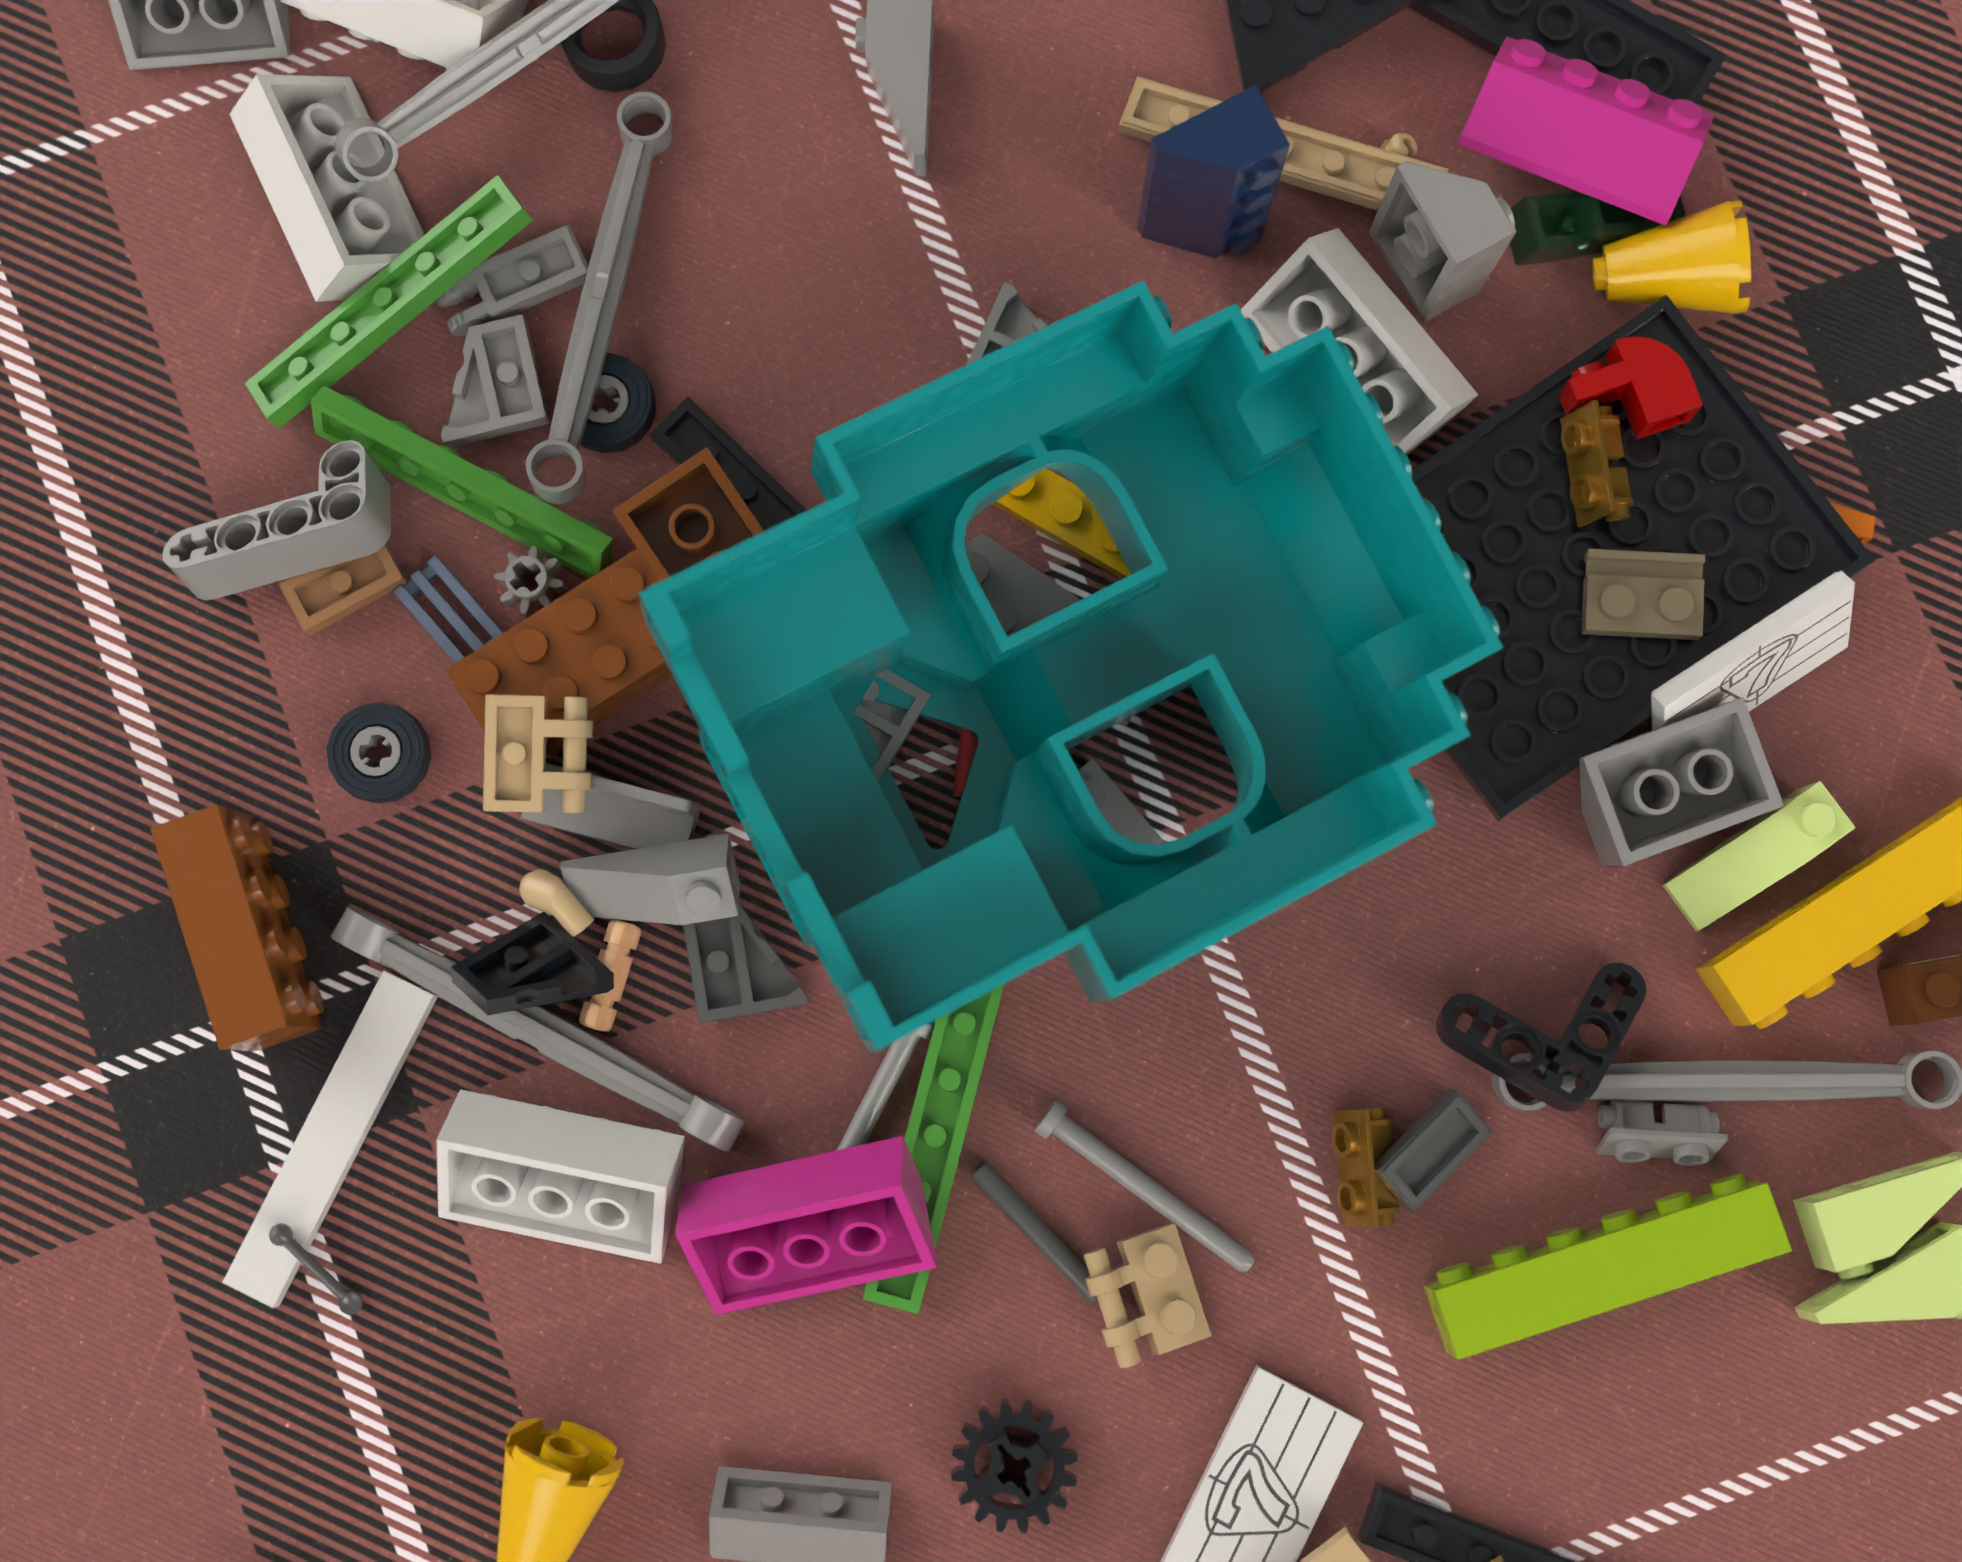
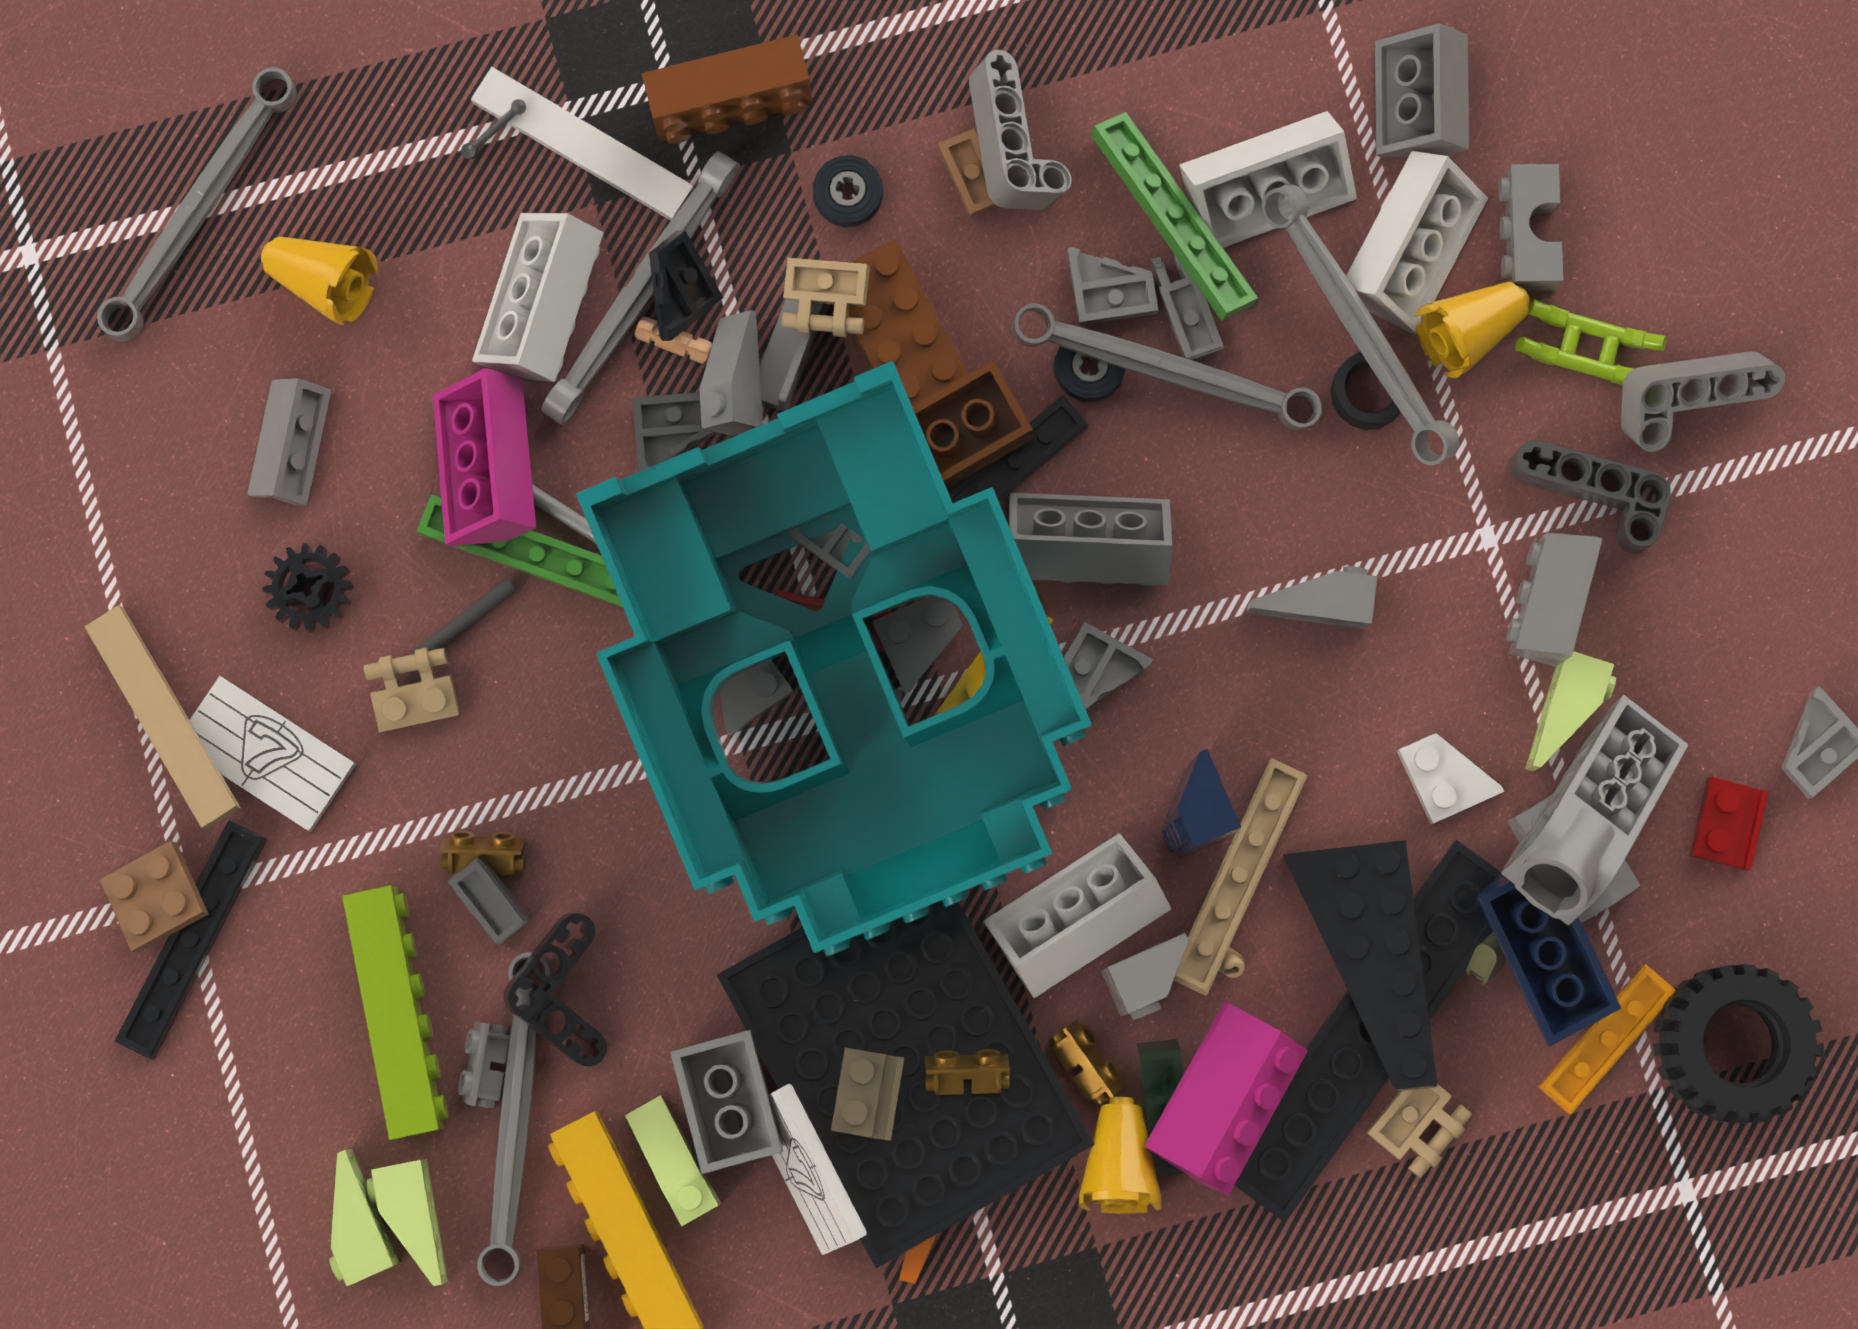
camera: 90 degrees right, 0 degrees up
(422, 582) = (934, 234): sand blue tile -> none
(462, 484) = (1042, 250): bright green plate -> none
(521, 568) = (962, 293): light grey gear -> none
(552, 896) = (734, 300): tan arm -> none
(839, 352) = (1093, 538): none -> light grey slope
(1143, 1186) = (486, 696): light grey bar -> none
(1566, 309) = (1099, 1076): none -> pearl gold hinge
(1645, 377) = (1023, 1116): red brick -> none

